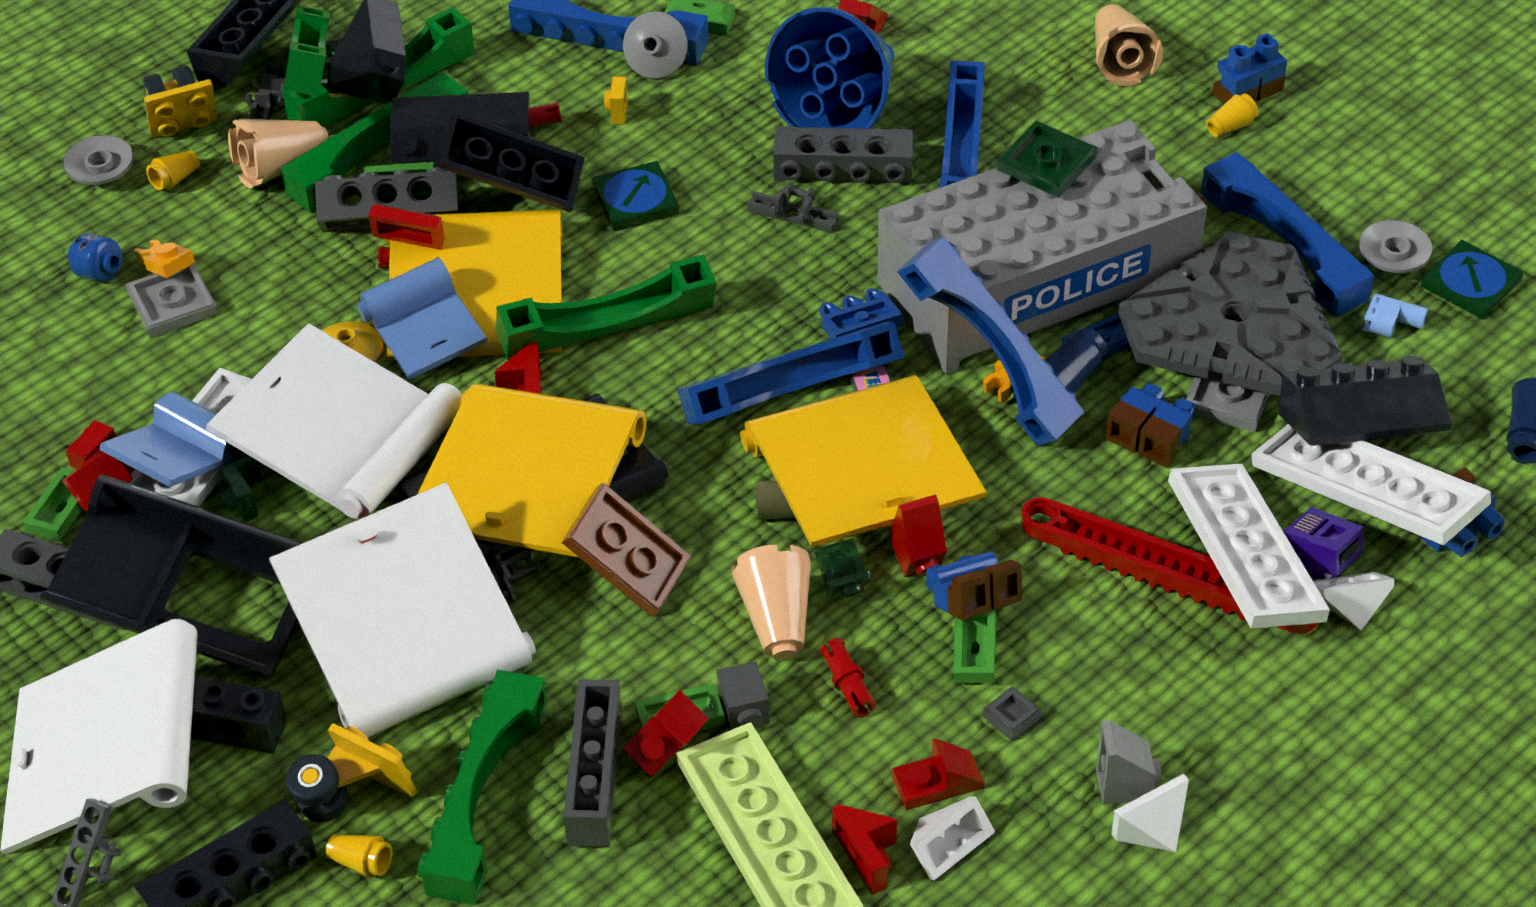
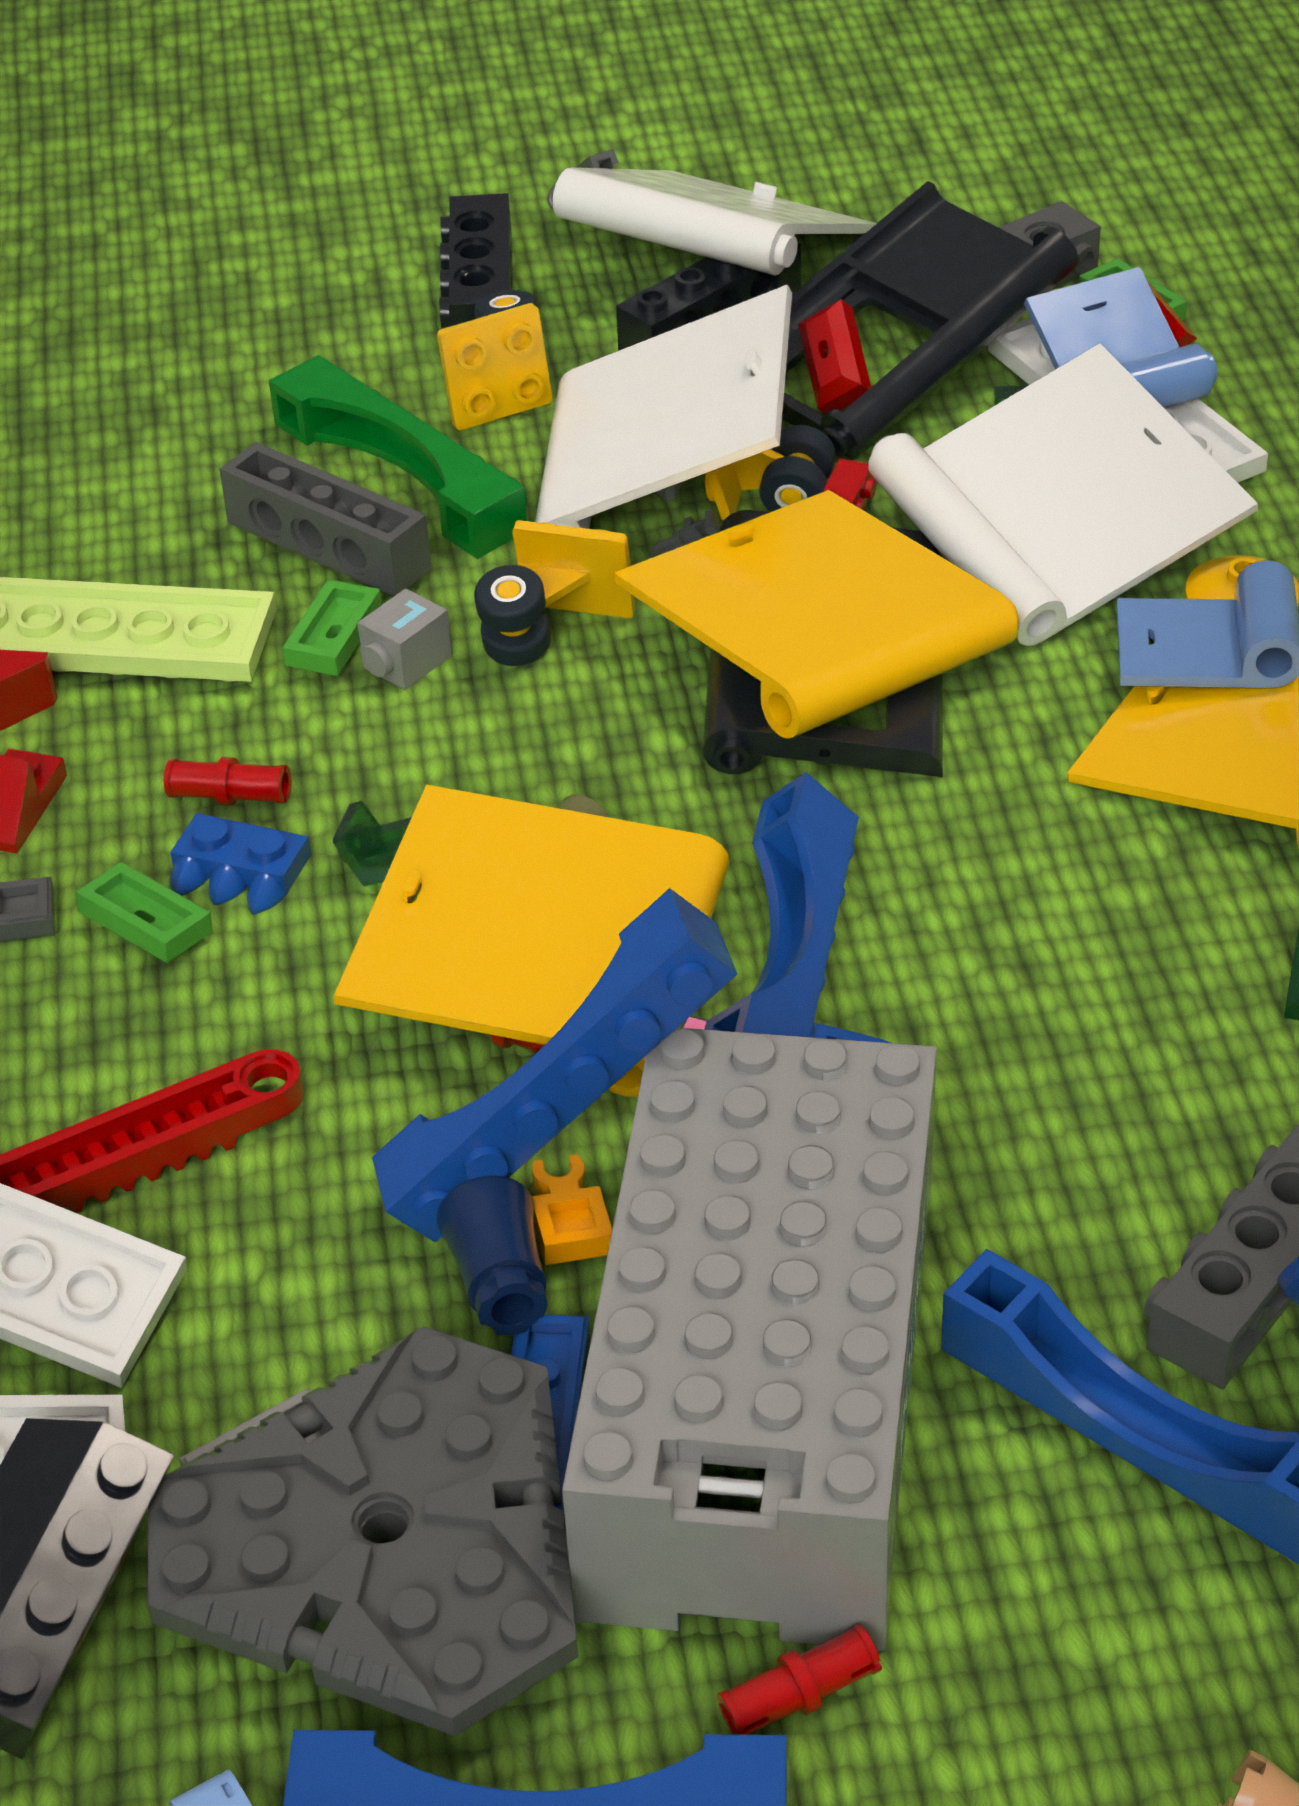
camera: 125 degrees right, 5 degrees down
(89, 443) = (1221, 340): red piece -> none
(225, 604) = (843, 373): none -> red piece
(360, 853) = (404, 355): yellow cone -> none
(521, 371) = (1014, 705): red slope -> none
(613, 616) = (556, 571): none -> yellow plate
(626, 549) = (597, 643): tile -> none
(665, 733) = (295, 579): red slope -> none
(669, 665) = (405, 638): none -> light grey brick
(674, 292) = (1065, 878): green arch -> none
(743, 695) = (293, 677): dark grey brick -> none
(774, 205) = (1172, 1156): dark grey piece -> none
(775, 596) = (398, 745): light nougat cone -> none
(896, 644) = (237, 858): none -> blue plate
(918, 536) = (338, 903): red slope -> none
(975, 585) = (213, 933): reddish brown hips -> none
(1047, 158) = (856, 1297): dark green tile -> none
(1150, 424) = (298, 1321): reddish brown hips -> none

